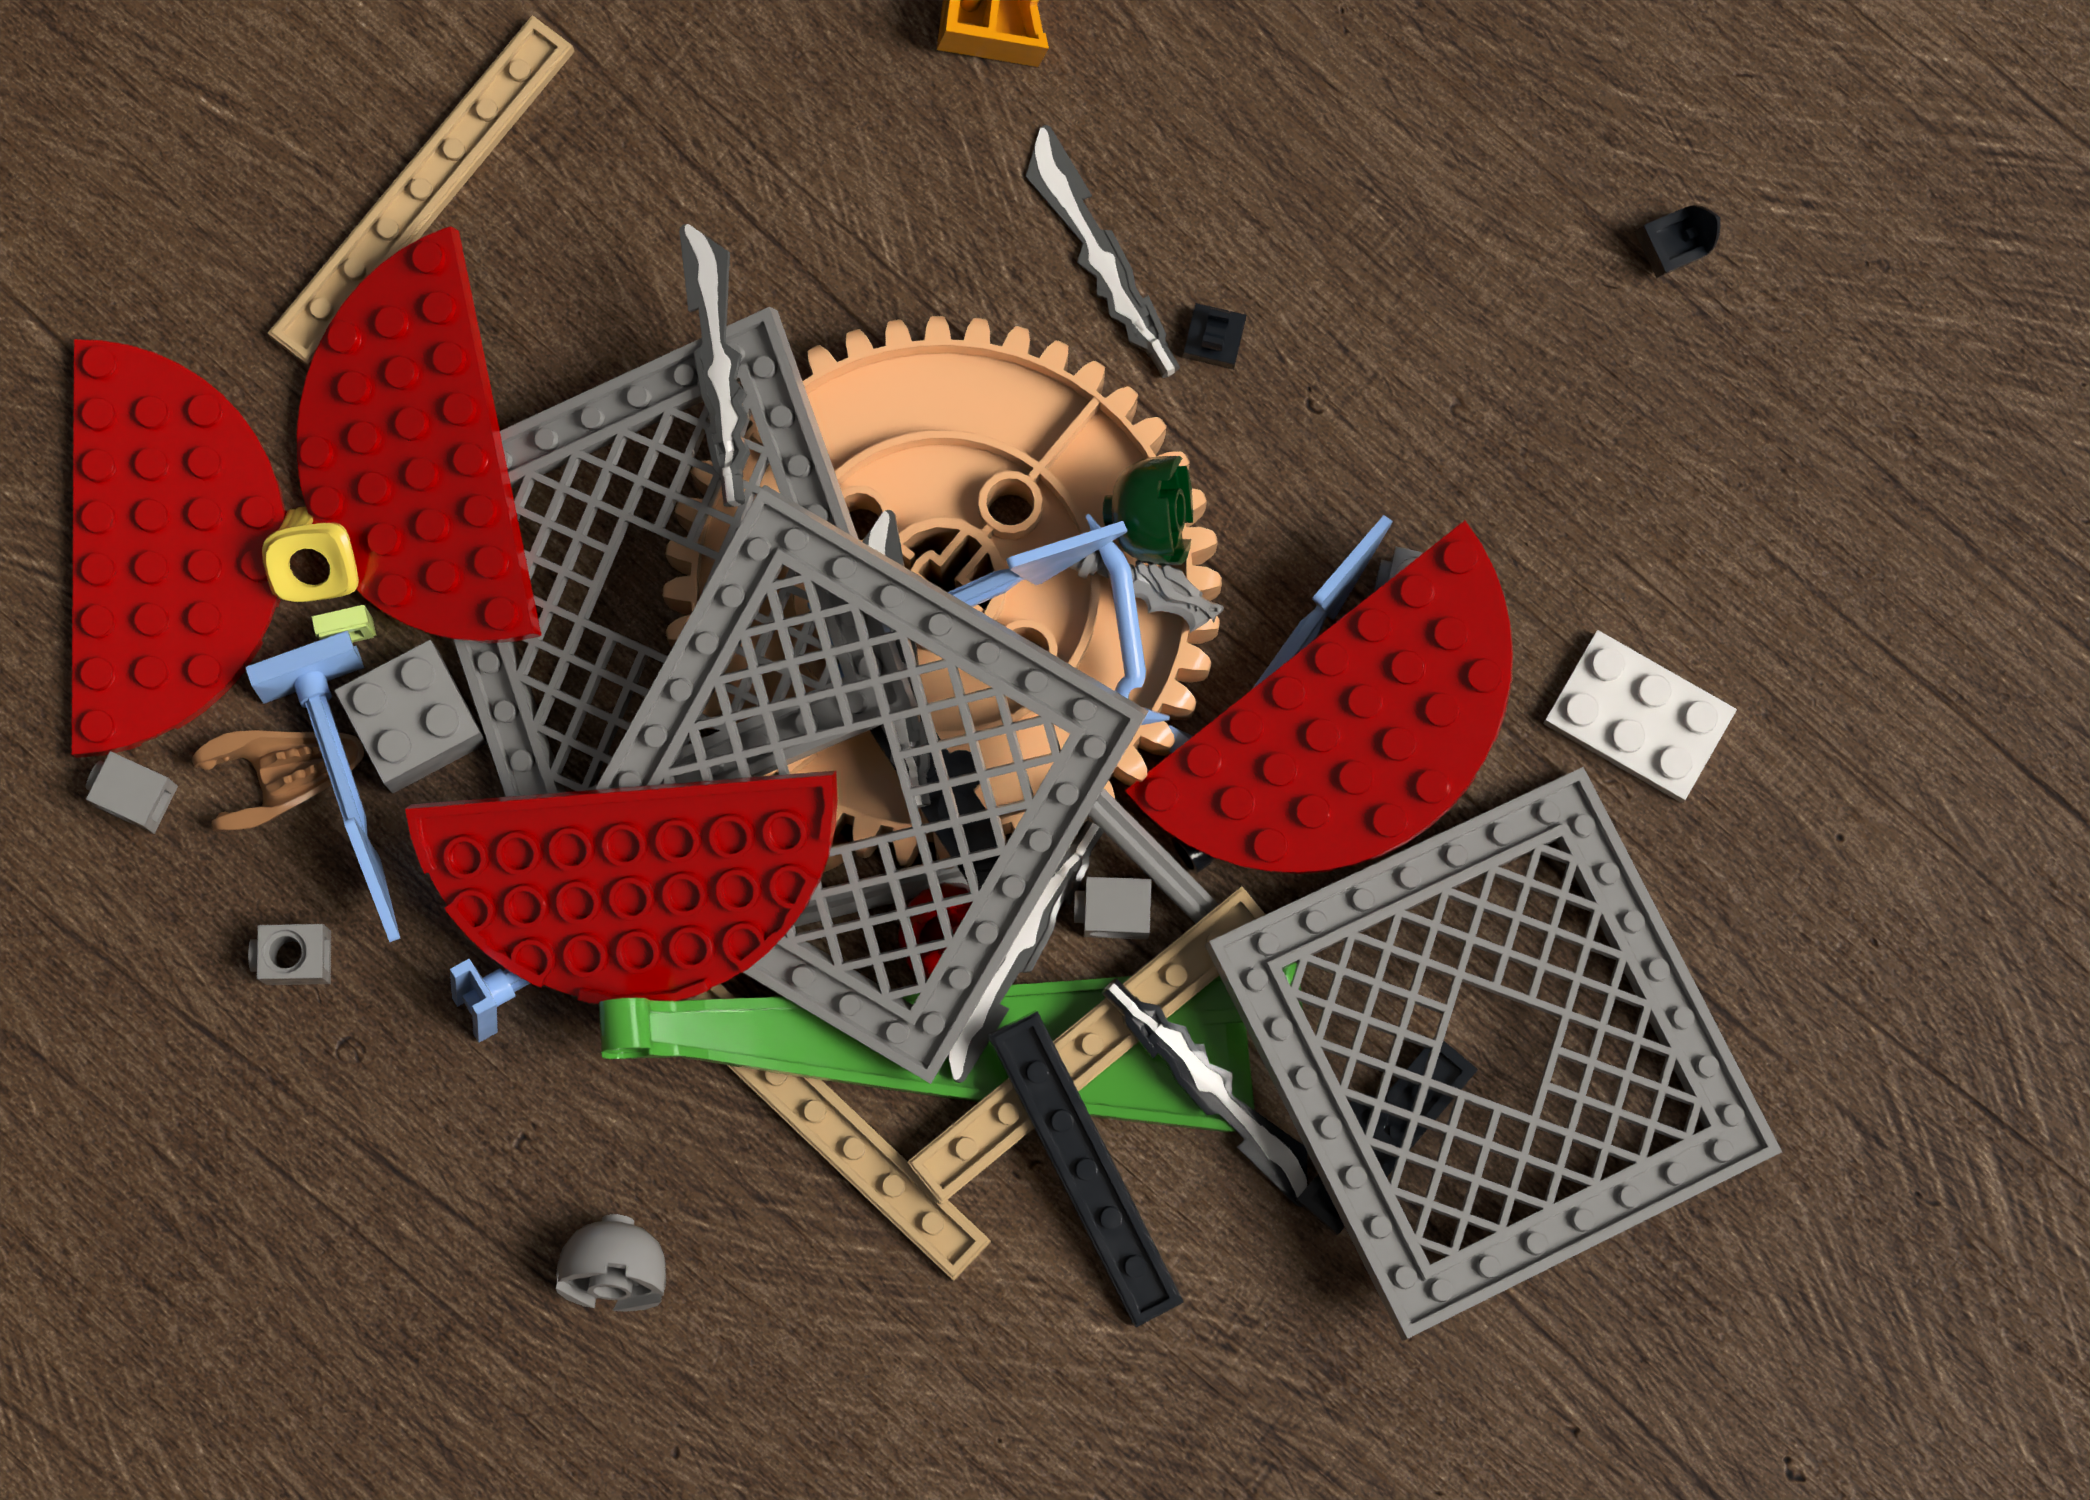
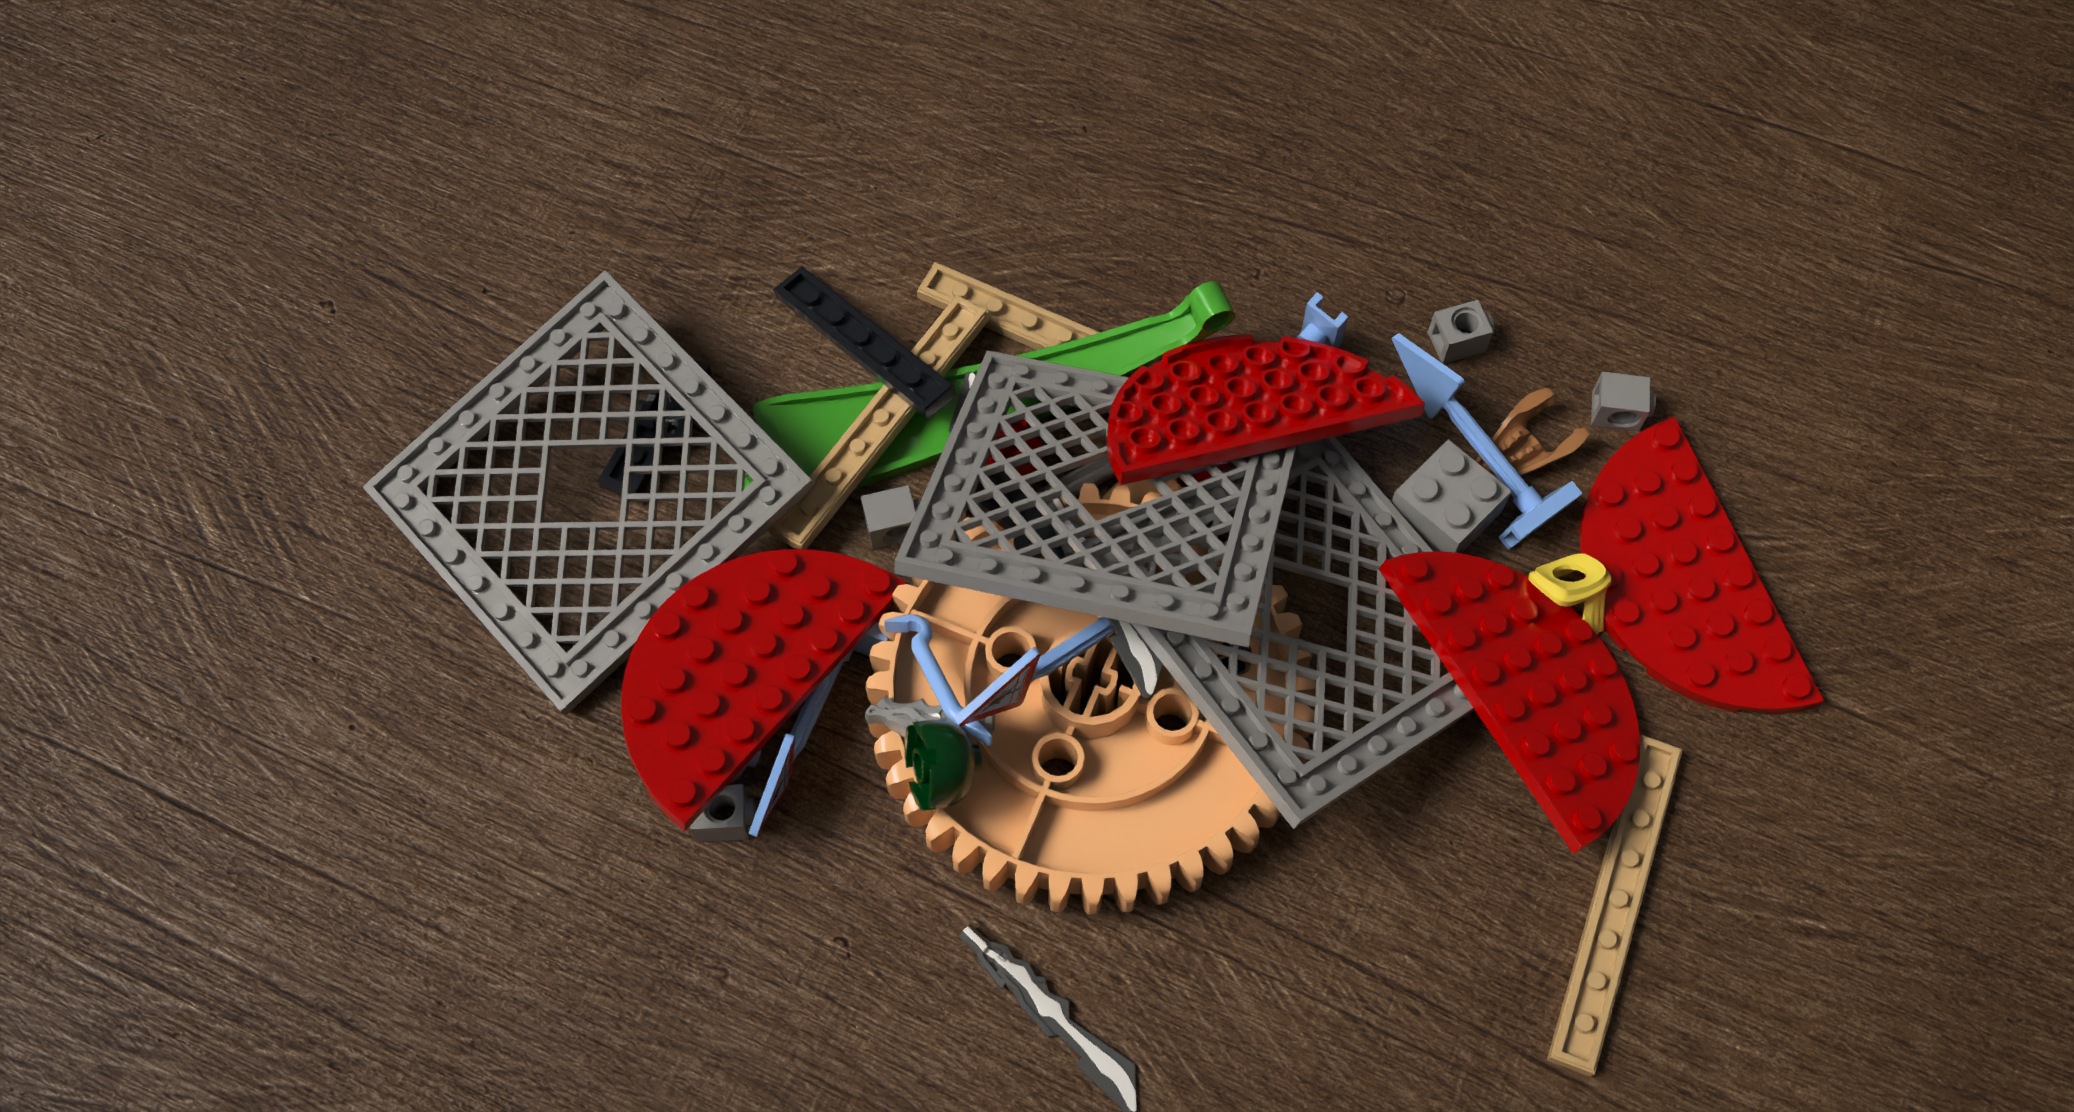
camera: 165 degrees right, 15 degrees down
(354, 620) = (1526, 549): yellowish green tile -> none
(612, 1263) = (1167, 203): light grey cylinder -> none
(716, 363) = (1324, 770): dark grey sword -> none
(1151, 857) = (859, 541): light grey axle -> none
(1210, 1087) = (797, 417): black sword -> none
(1214, 336) = (937, 971): black tile -> none
(1640, 716) = (524, 769): white plate -> none

